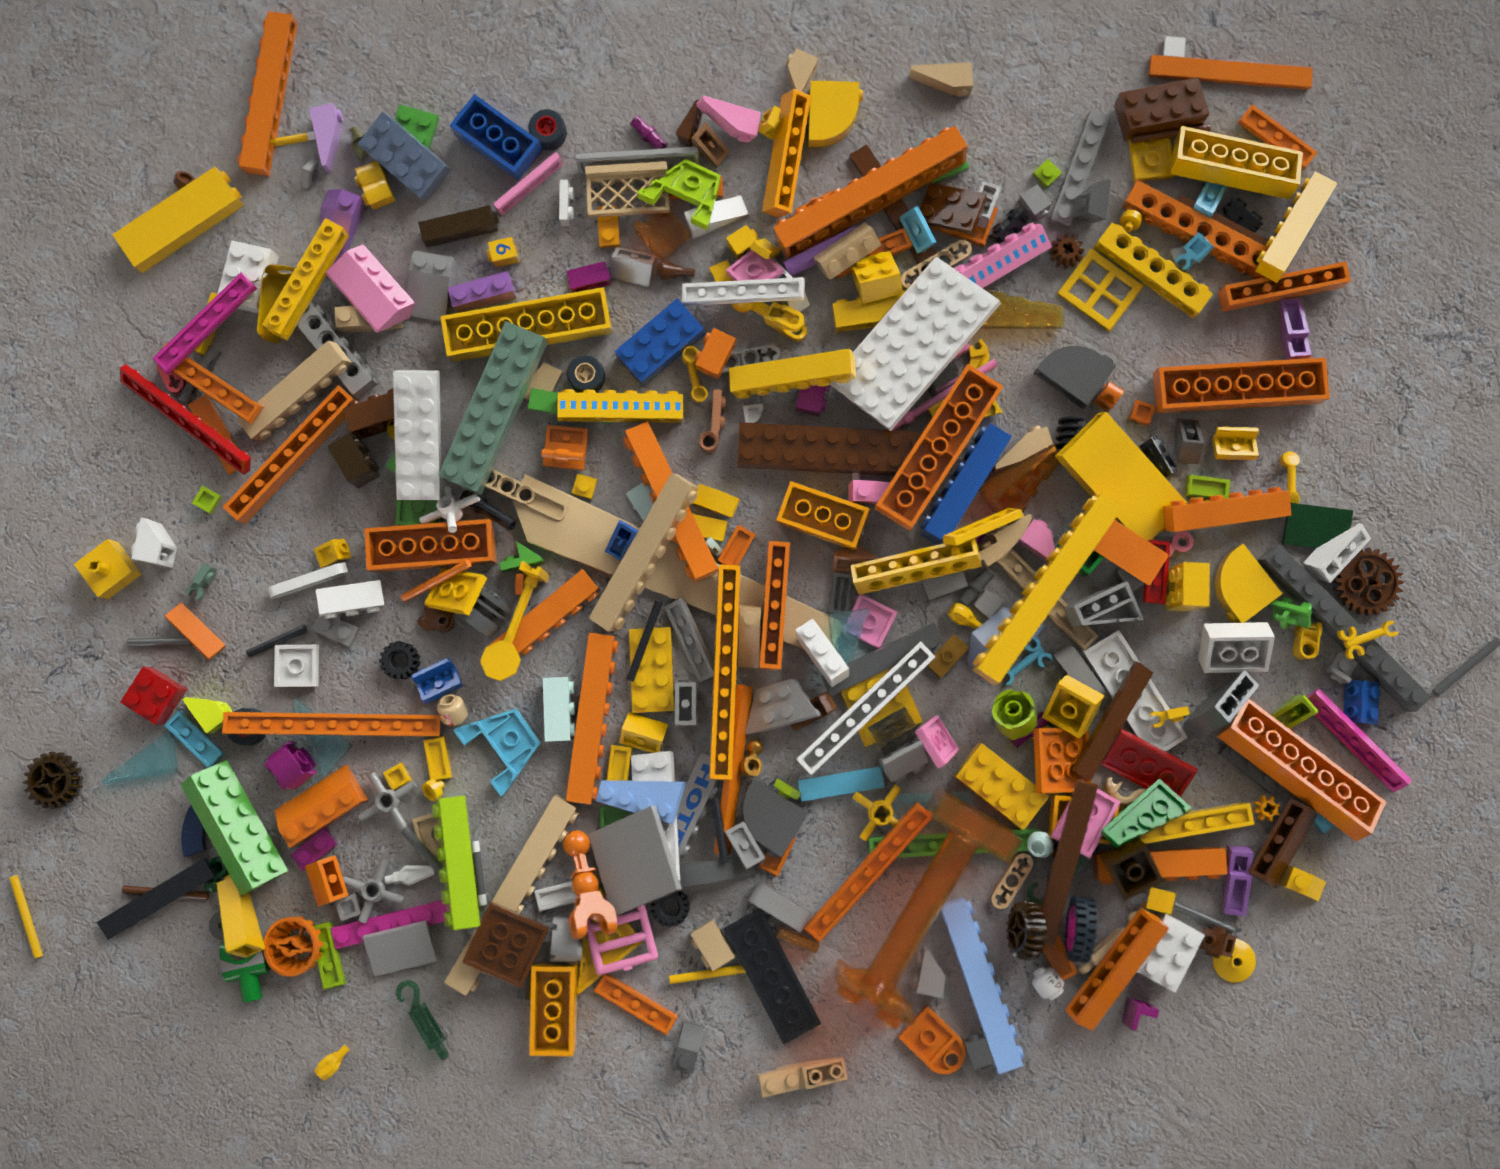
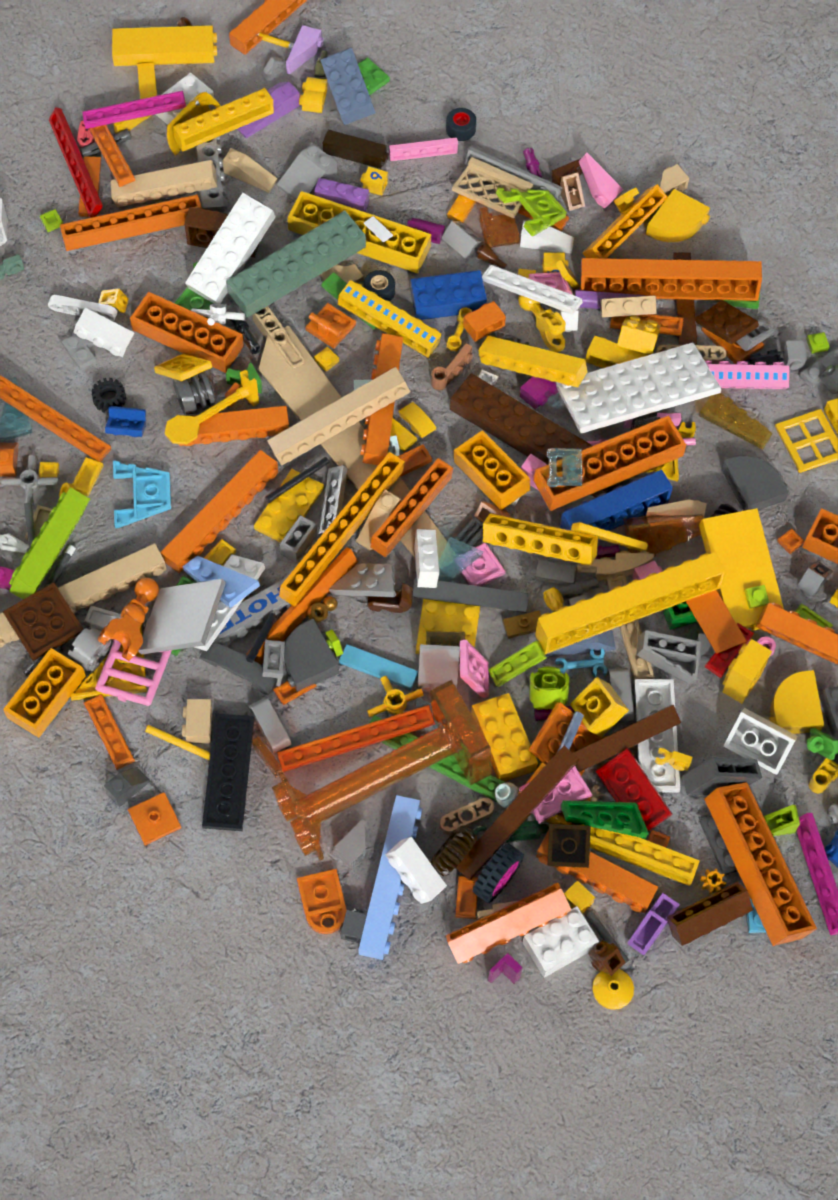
camera: 25 degrees right, 20 degrees down
(192, 275) = (147, 80): none -> yellow tile
(276, 641) = (30, 335): black bar -> none
(296, 665) = (32, 357): white plate -> none
(354, 461) = (173, 248): dark brown brick -> none
(370, 289) = (264, 151): bright pink slope -> none
(433, 619) = (157, 384): reddish brown plate -> none
(436, 580) = (173, 355): orange bar -> none
(452, 710) = (122, 447): tan head -> none
(496, 137) = (420, 108): blue brick -> none
(547, 314) = (378, 229): none -> white sticker
(558, 709) = (200, 490): light aqua brick -> none
(565, 211) = (438, 178): white plate -> none
(621, 540) = (328, 396): blue slope -> none
(643, 733) = (250, 543): yellow panel -> none
(675, 919) = (180, 666): black tyre -> none
(734, 1060) = (154, 818): none -> orange plate
(802, 1075) = (200, 860): tan slope -> none
(865, 708) = (433, 614): white brick -> none
(910, 482) = (570, 467): none -> clear light blue plate
(917, 230) = (691, 323): medium azure plate -> none
(947, 78) = (779, 241): tan slope -> none
(970, 705) = (517, 663): none -> lime tile
(1004, 971) = (415, 870): none -> white brick
(1047, 983) = (445, 907): white head -> none
(1065, 758) = (572, 730): none -> sand blue piece
(1071, 245) = (799, 398): reddish brown gear -> none
(1108, 396) = (770, 509): orange leg -> none
(1152, 502) = (756, 596): none -> lime plate
(1154, 450) = (784, 570): black hinge -> none
(1195, 798) = (659, 838): none -> orange tile
(1302, 883) = (709, 958): yellow slope -> none

